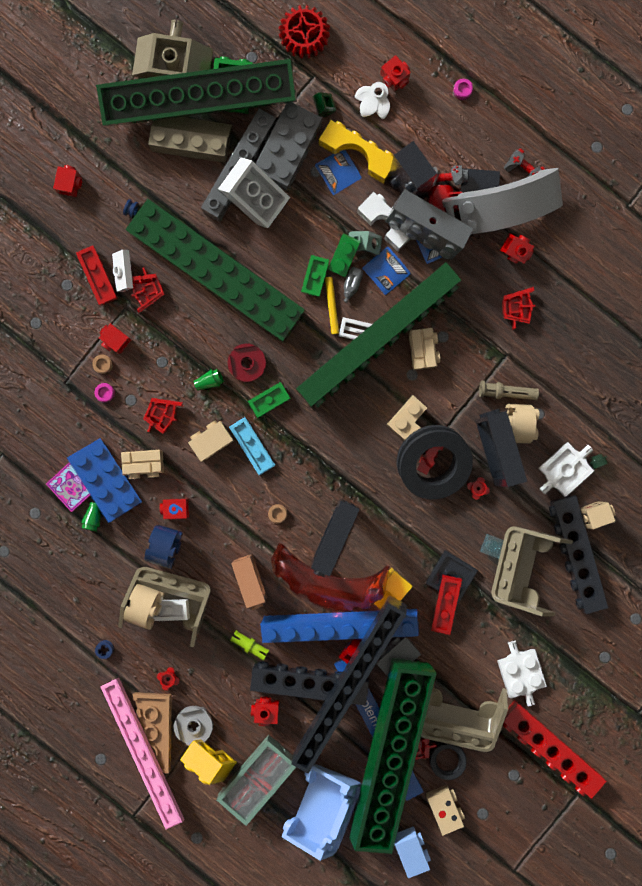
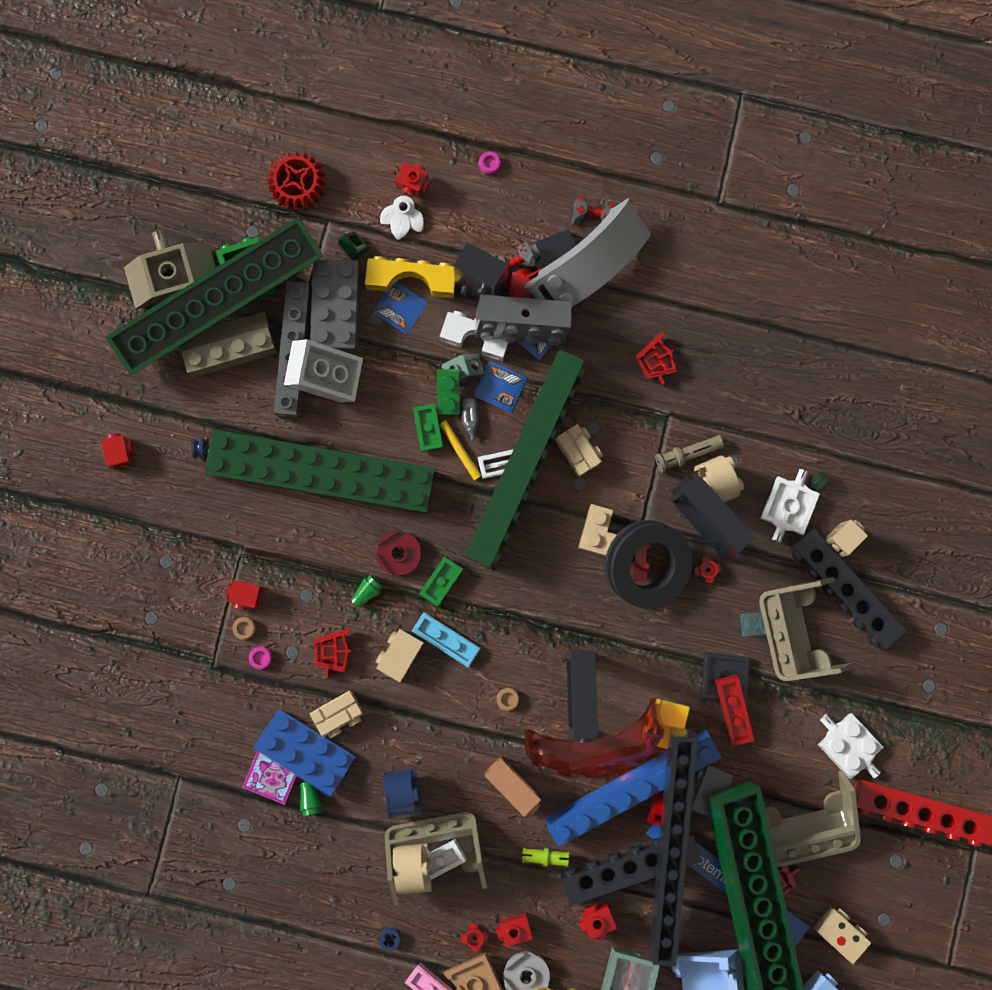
camera: 30 degrees left, 5 degrees down
(96, 275) = (194, 536): red plate -> none
(122, 271) = (220, 518): white plate -> none
(146, 289) = (255, 526): red piece -> none
(174, 508) = (394, 746): red brick -> none
(200, 687) = (514, 930): none -> red brick
(452, 774) = (823, 896): black tyre -> none
(517, 248) = (626, 300): red brick -> none

